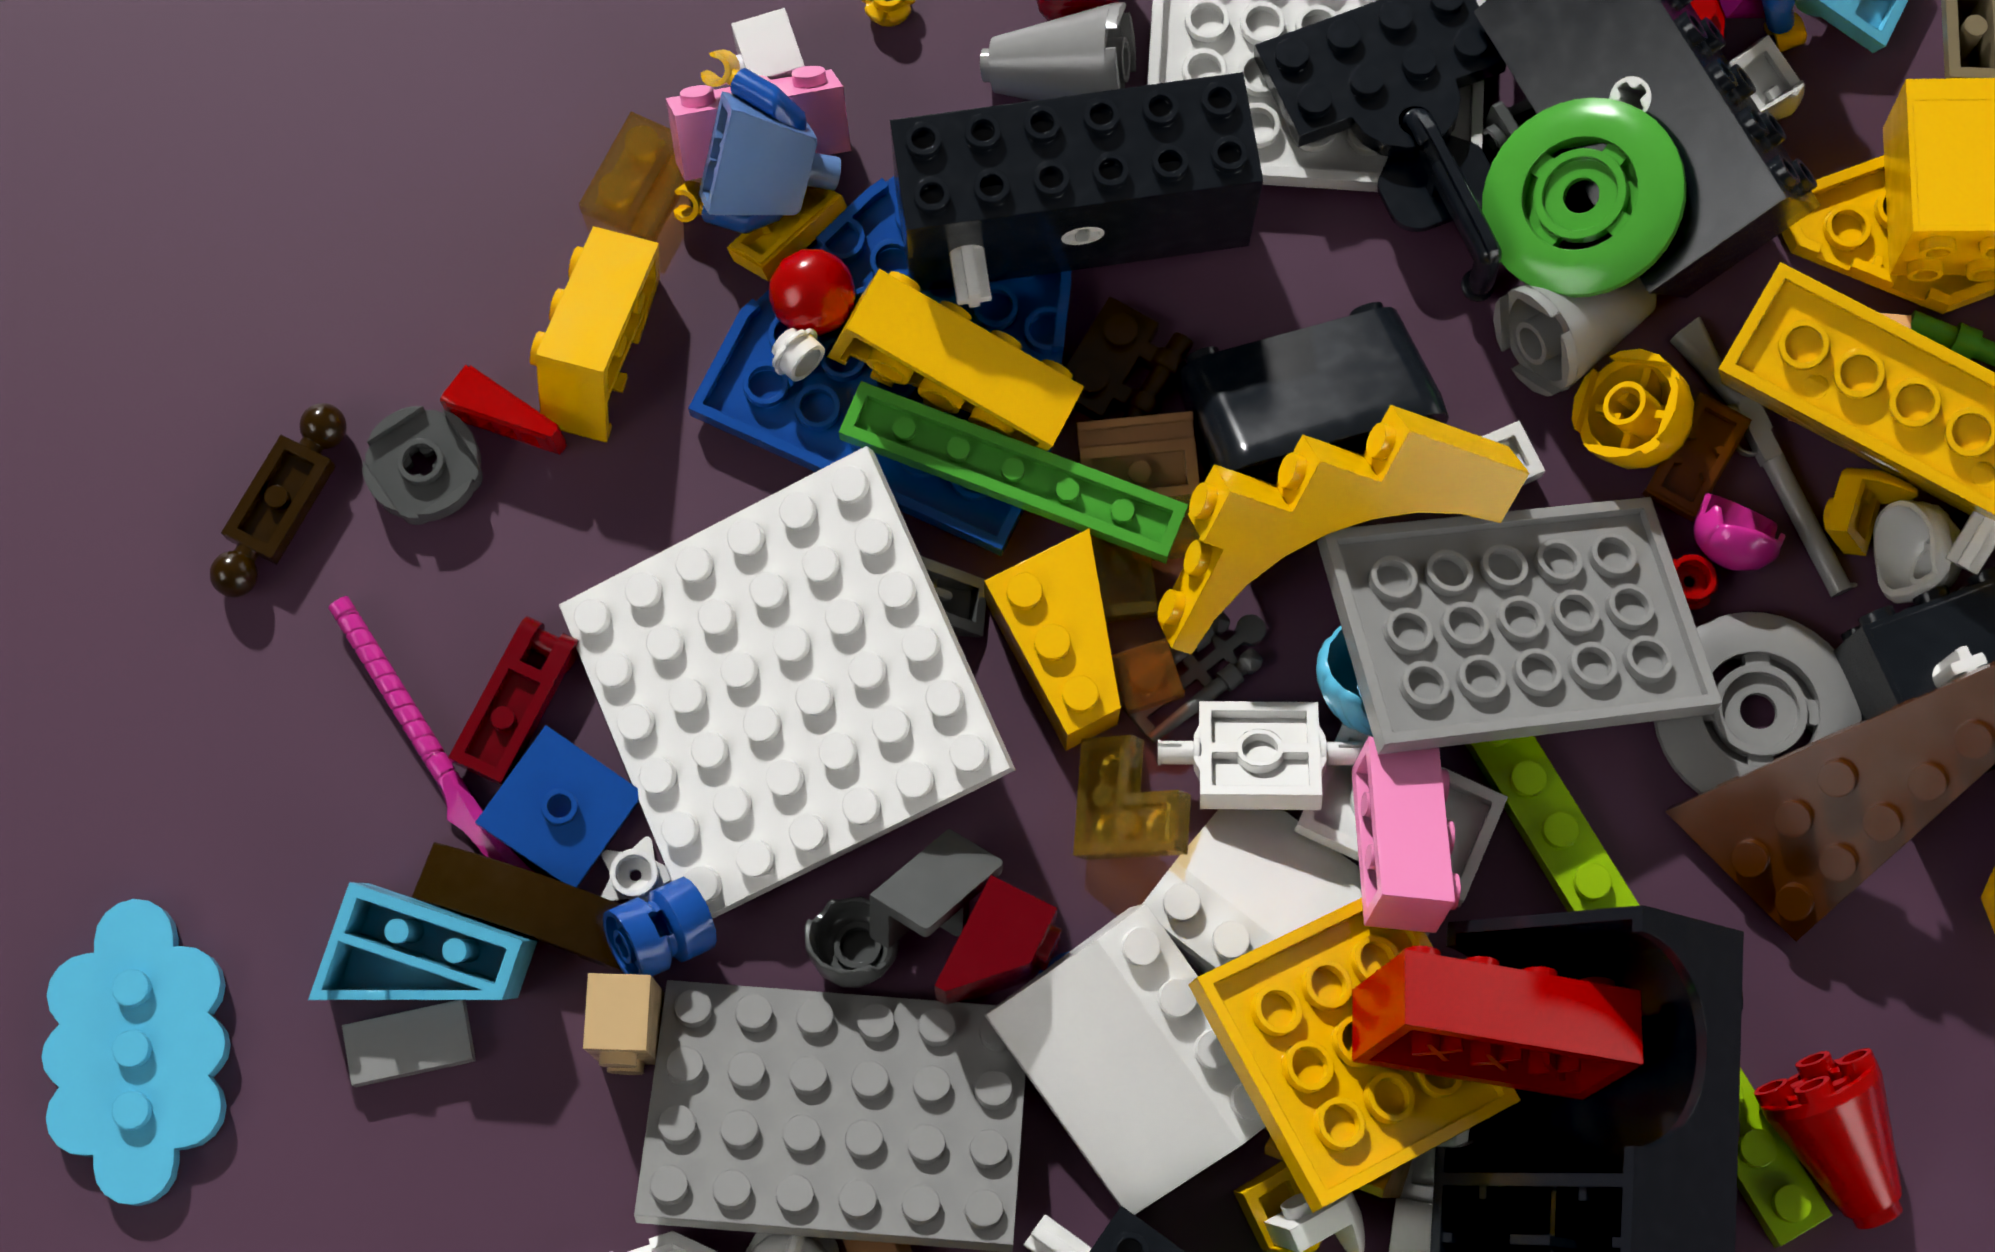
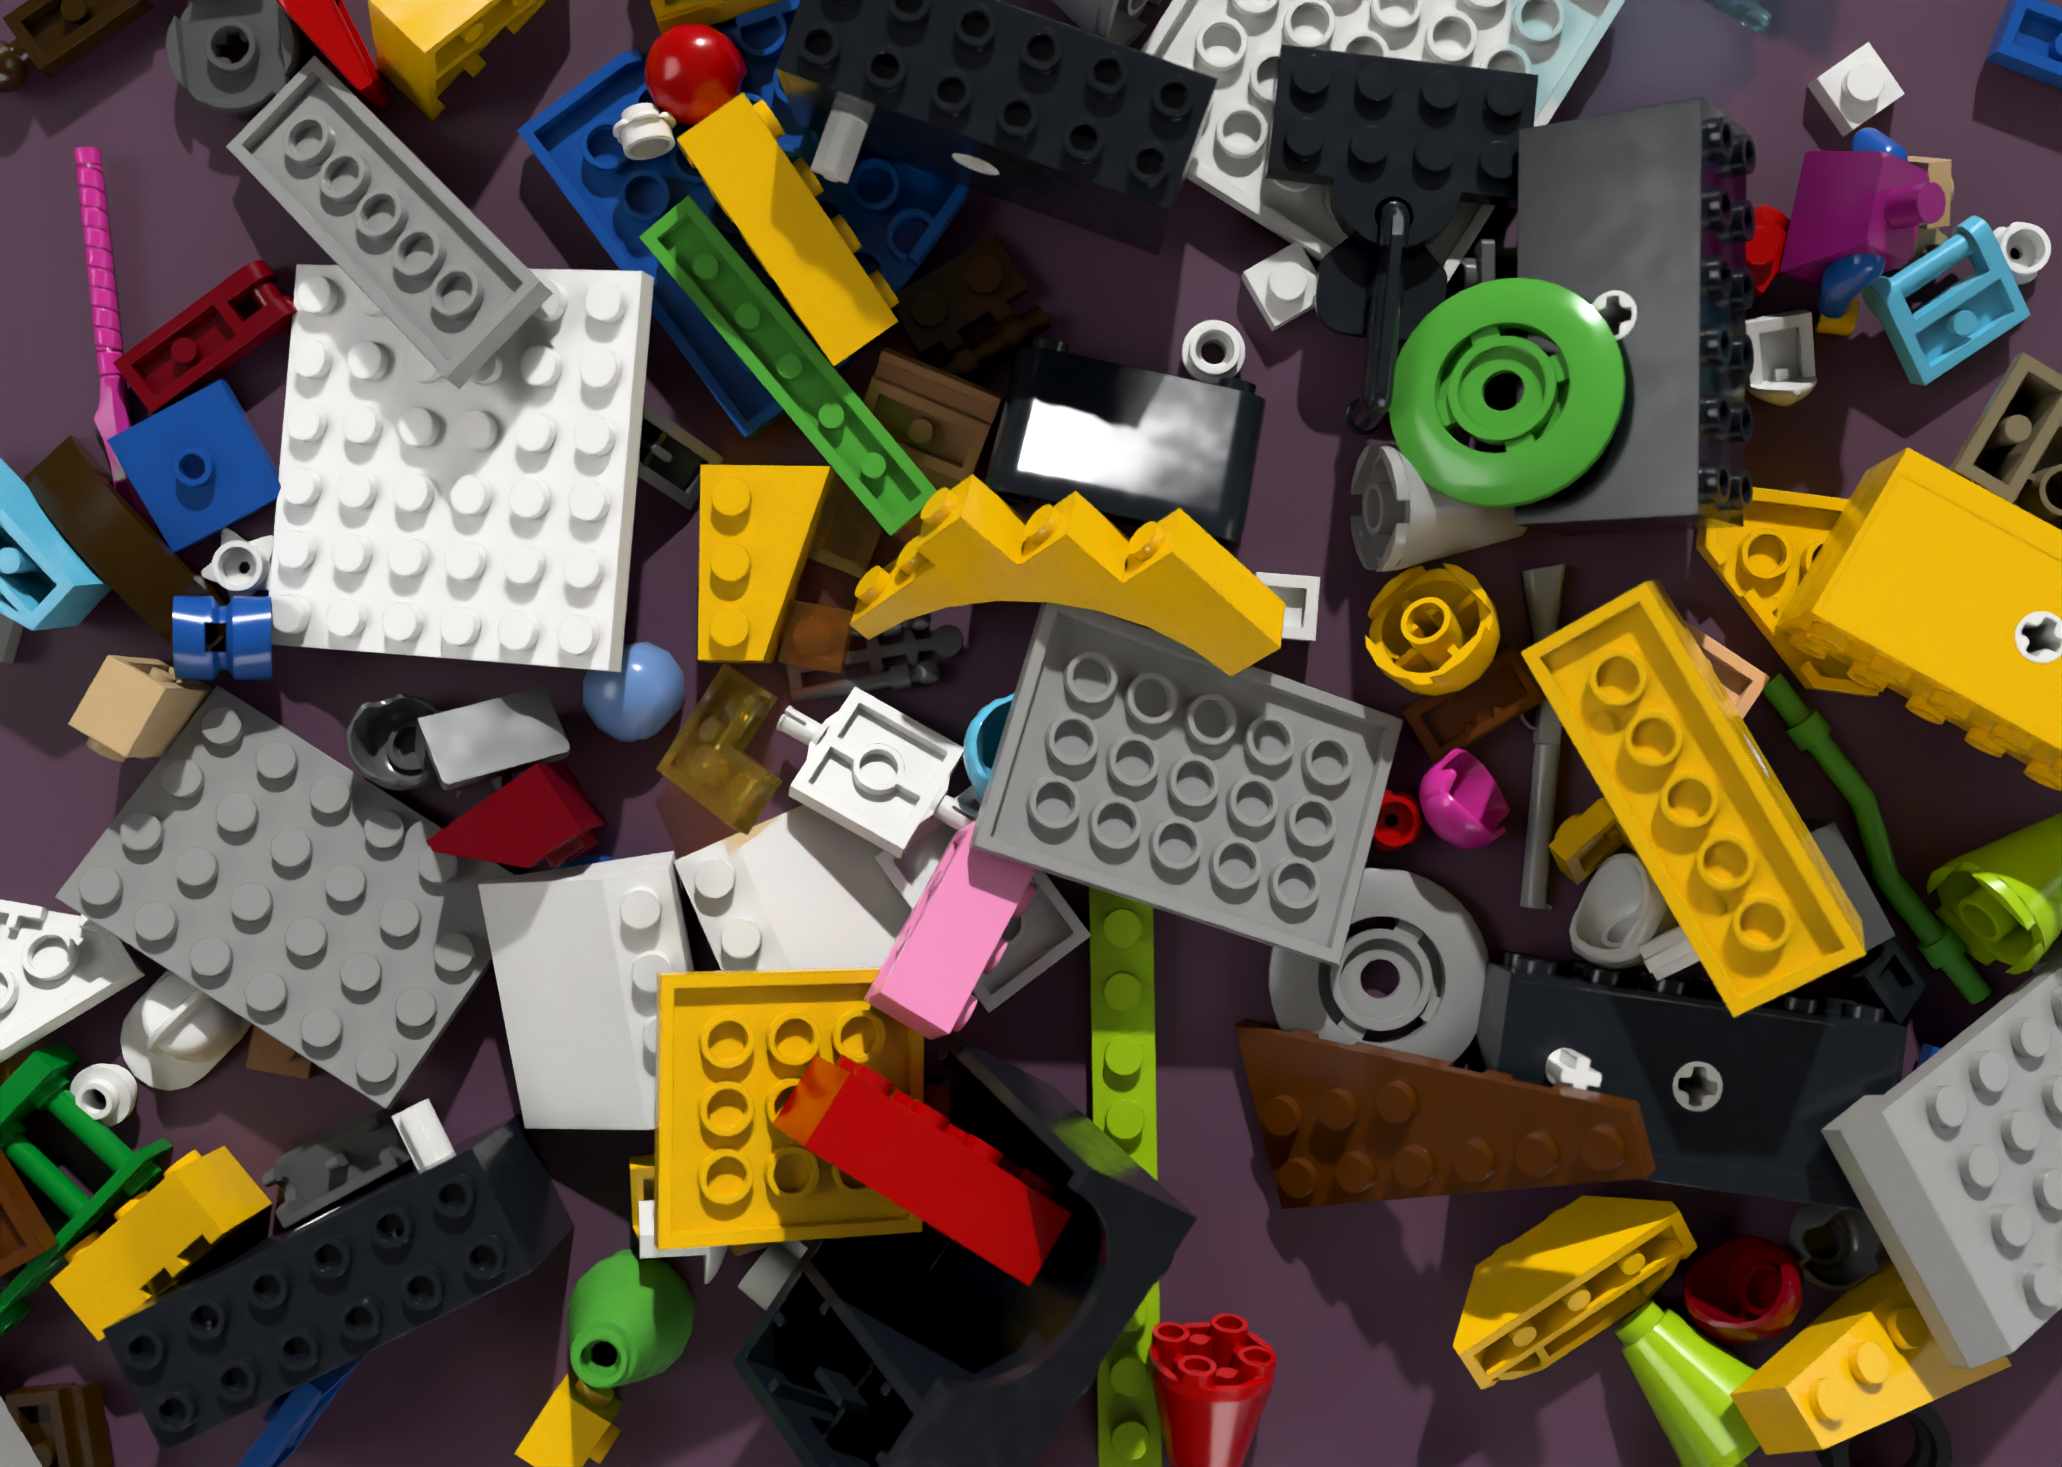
camera: 25 degrees right, 15 degrees up
(632, 520) = (389, 222): none -> light grey plate
(1020, 806) = (638, 698): none -> medium blue hair
(1335, 284) = (1221, 334): none -> white plate
(1355, 223) = (1282, 285): none -> white plate

